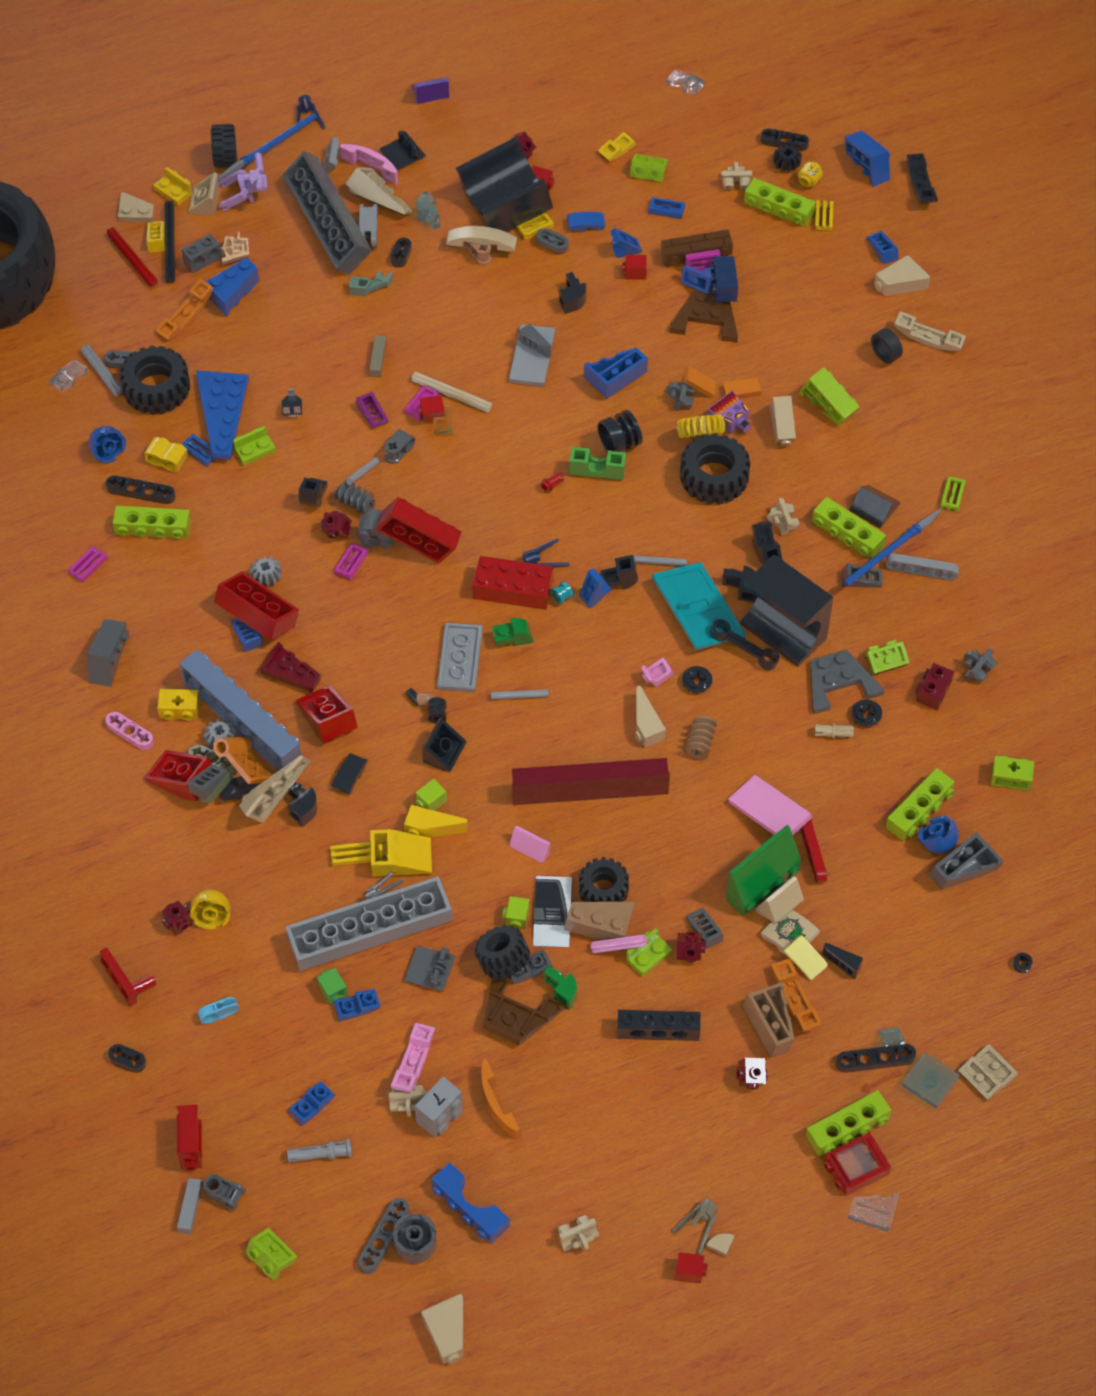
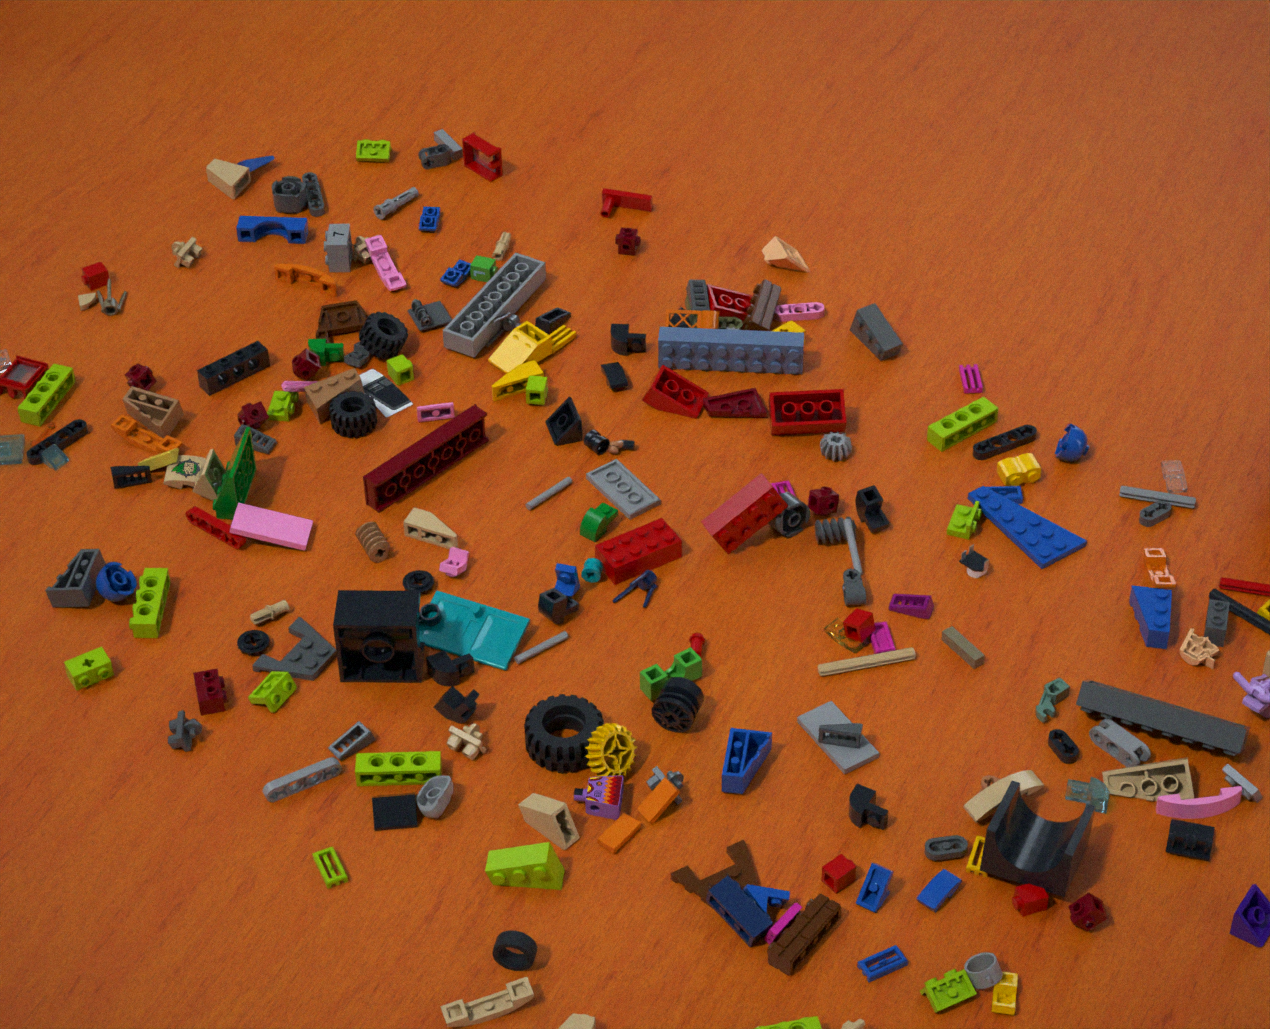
camera: 140 degrees right, 15 degrees down
(72, 793) = (784, 256): none -> light nougat slope
(129, 1054) = (572, 177): black beam -> none
(155, 362) = (1098, 520): black tyre -> none
(162, 743) = (762, 306): none -> reddish brown brick
(210, 909) = (611, 254): yellow cylinder -> none
(218, 1010) = (542, 221): medium azure piece -> none
(266, 796) = (650, 316): tan wedge -> none
(285, 1007) = (501, 246): none -> tan axle
(334, 885) = (552, 320): none -> black slope
(400, 1336) = (256, 162): none -> blue slope
(594, 975) = (306, 364): none -> dark red brick
(625, 147) = (983, 970): none -> light grey piece
(842, 485) = (435, 796): none -> light grey piece
(911, 532) = (335, 820): blue piece -> none

